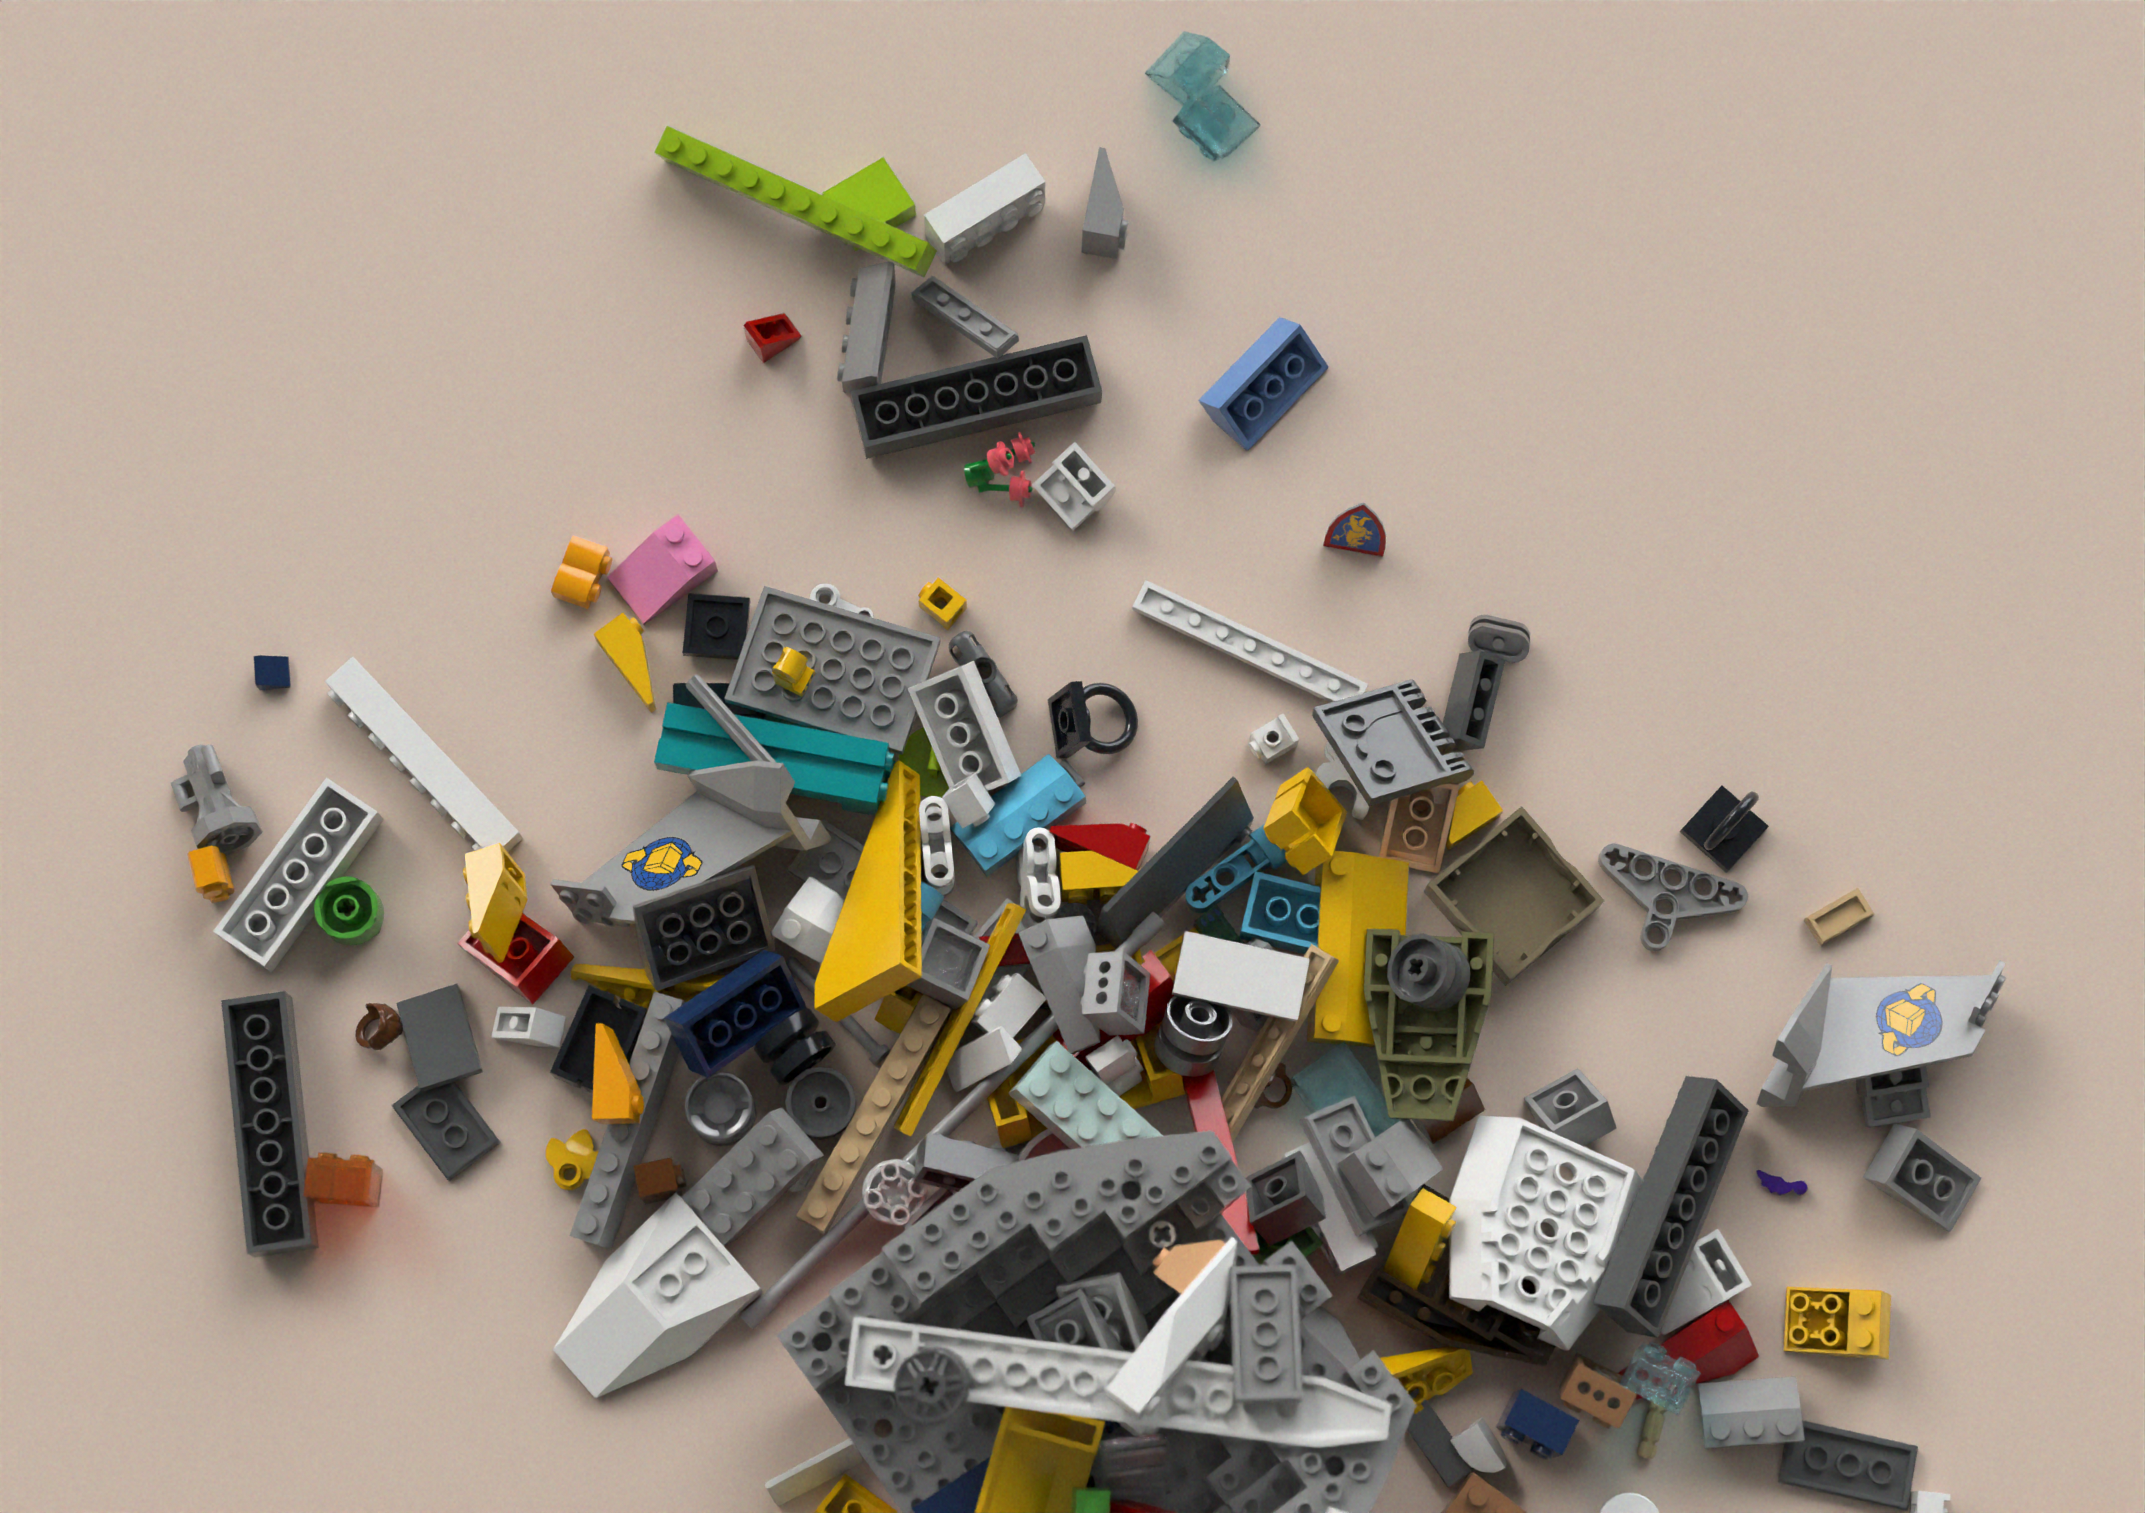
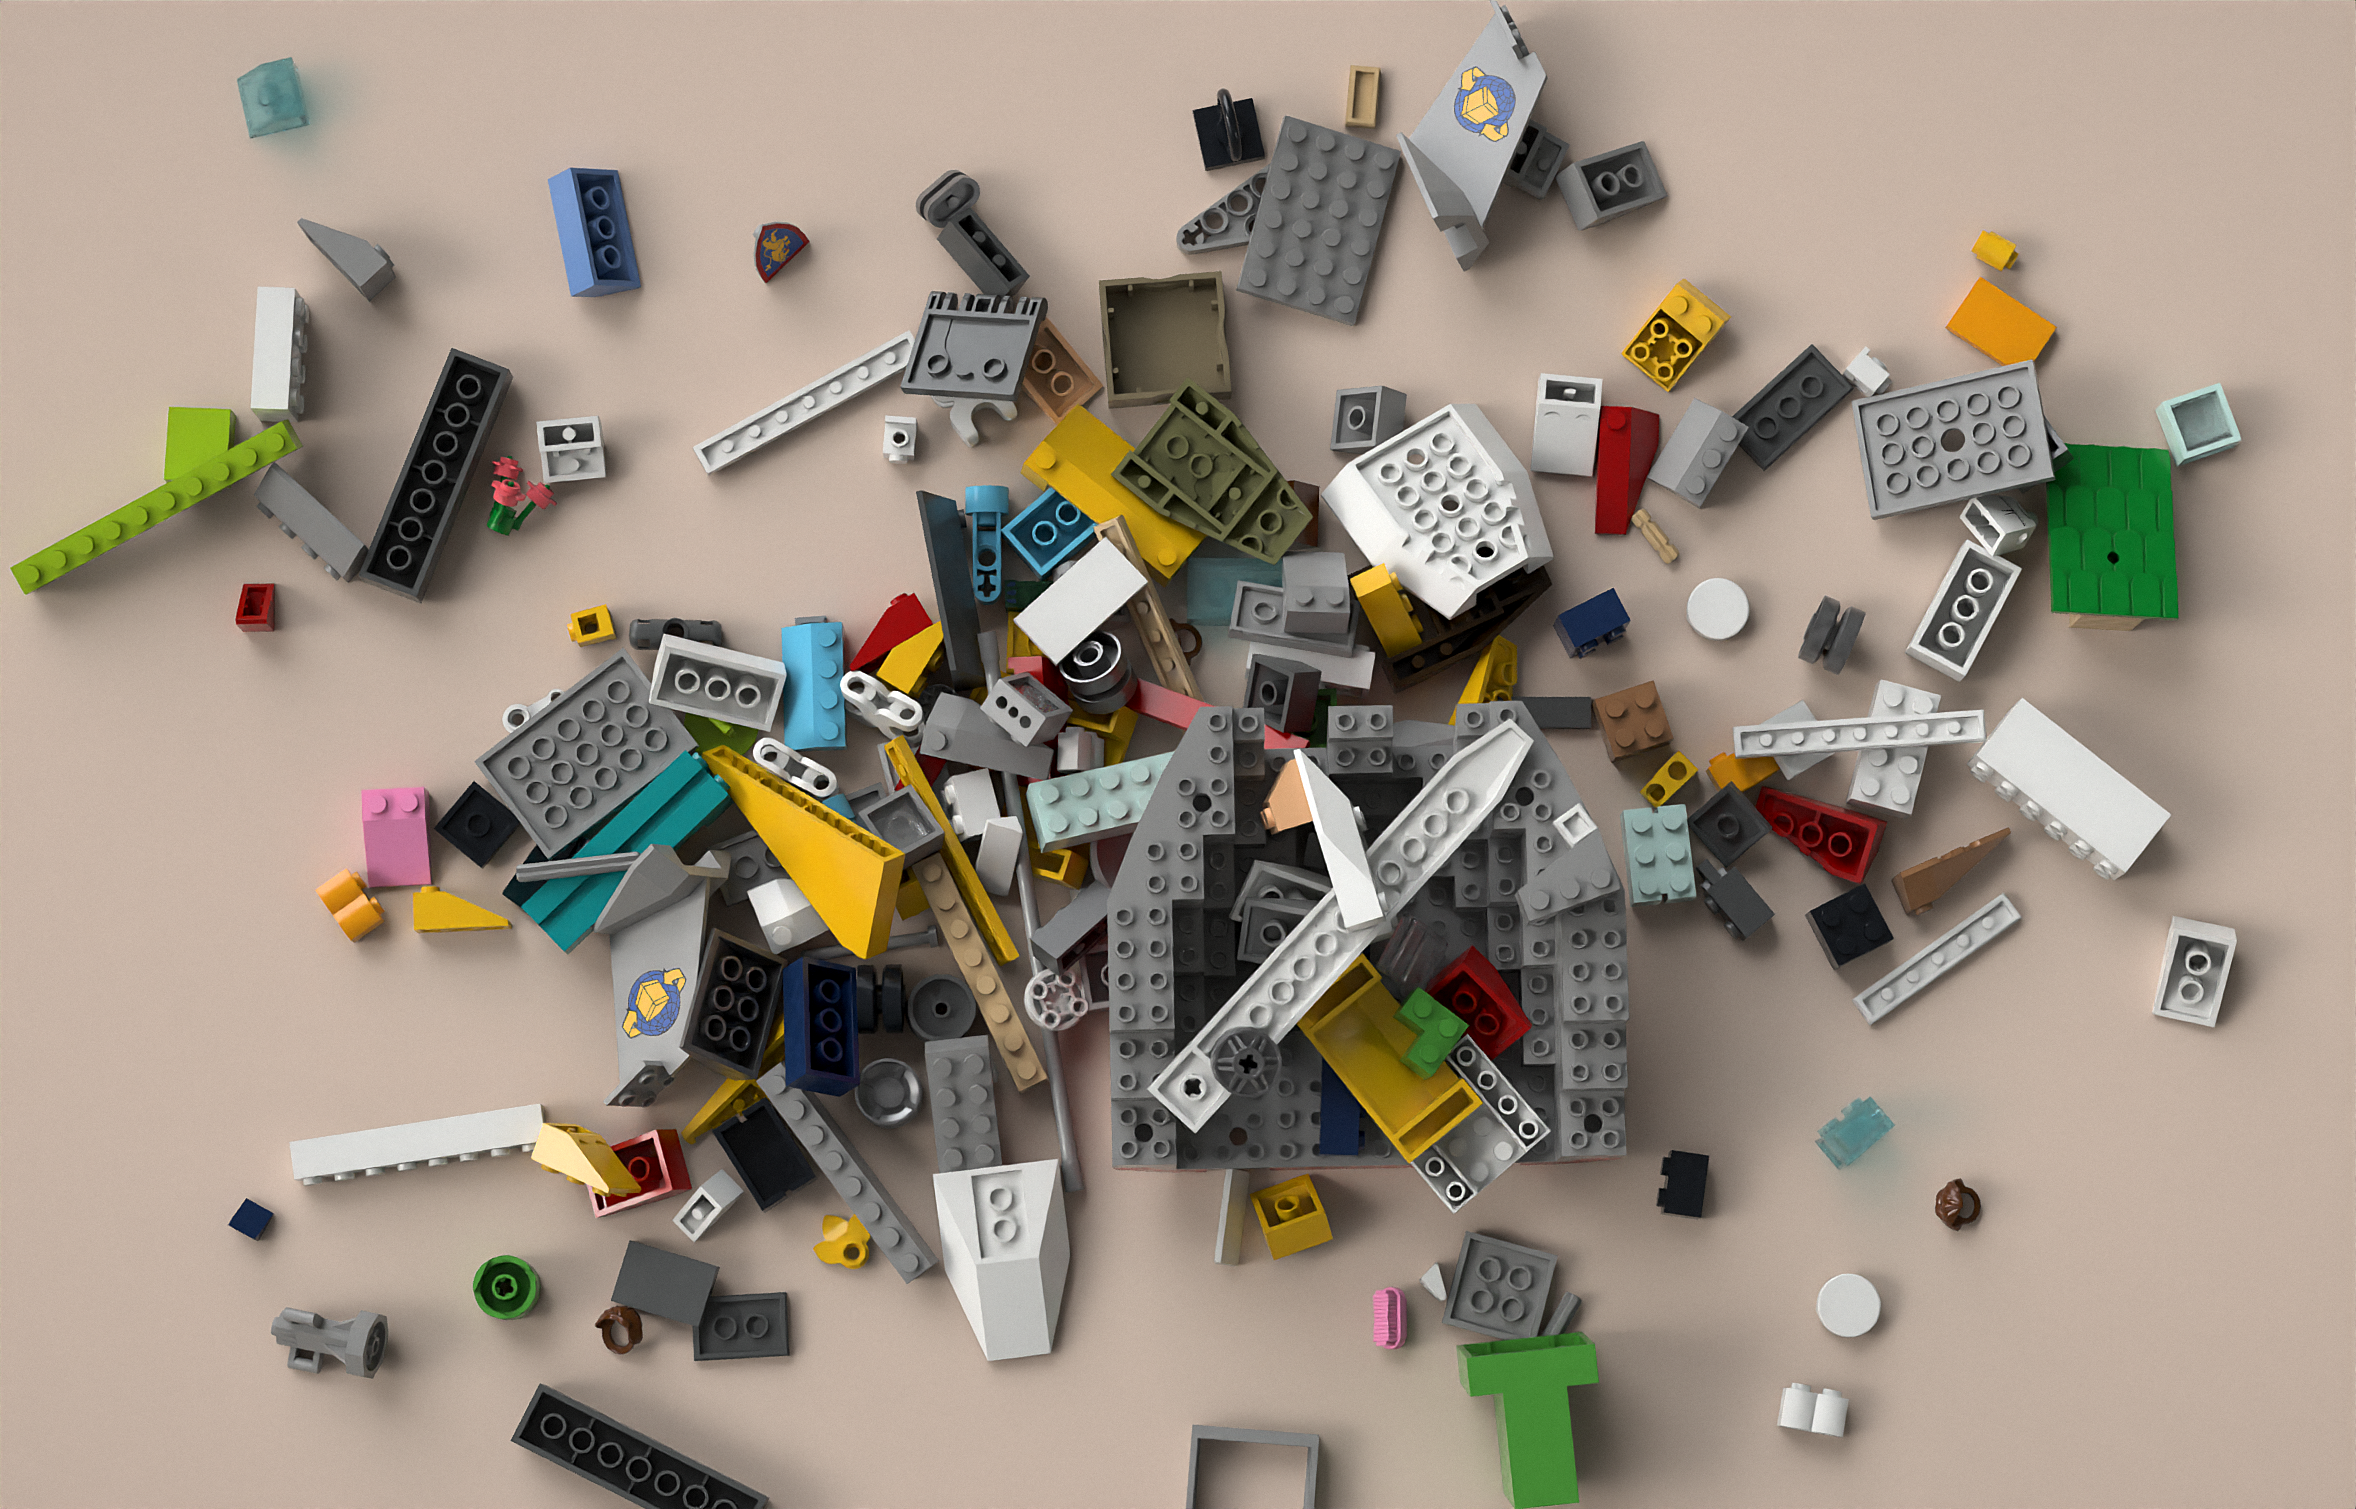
camera: 55 degrees left, 5 degrees up
(211, 873) = (394, 1381): light orange brick -> none
(285, 887) = (446, 1309): white brick -> none
(343, 1181) = (731, 1438): clear orange brick -> none
(615, 1089) = (815, 1164): light orange slope -> none
(659, 1180) = (912, 1181): reddish brown brick -> none
(792, 671) = (568, 786): yellow leg -> none
(965, 317) = (359, 436): light grey tile -> none
(969, 801) = (778, 719): white brick -> none
(1072, 719) = (769, 589): black tile -> none
(1162, 1234) = (1250, 804): white piece -> none
(1215, 122) = (338, 111): clear light blue slope -> none
(1266, 1334) = (1388, 776): light grey tile -> none
(1305, 821) = (989, 460): yellow piece -> none
(1428, 972) = (1182, 451): dark grey wheel -> none
(1472, 811) = (1073, 321): yellow slope -> none
(1480, 1448) = (1578, 681): white brick -> none
(1596, 1391) = (1599, 558): medium nougat piece -> none
(1660, 1377) = (1624, 501): clear light blue piece -> none
(1671, 1206) = (1498, 396): dark grey brick -> none
(1707, 952) = (1318, 220): none -> light grey plate
(1778, 1185) = (1541, 300): dark purple piece -> none

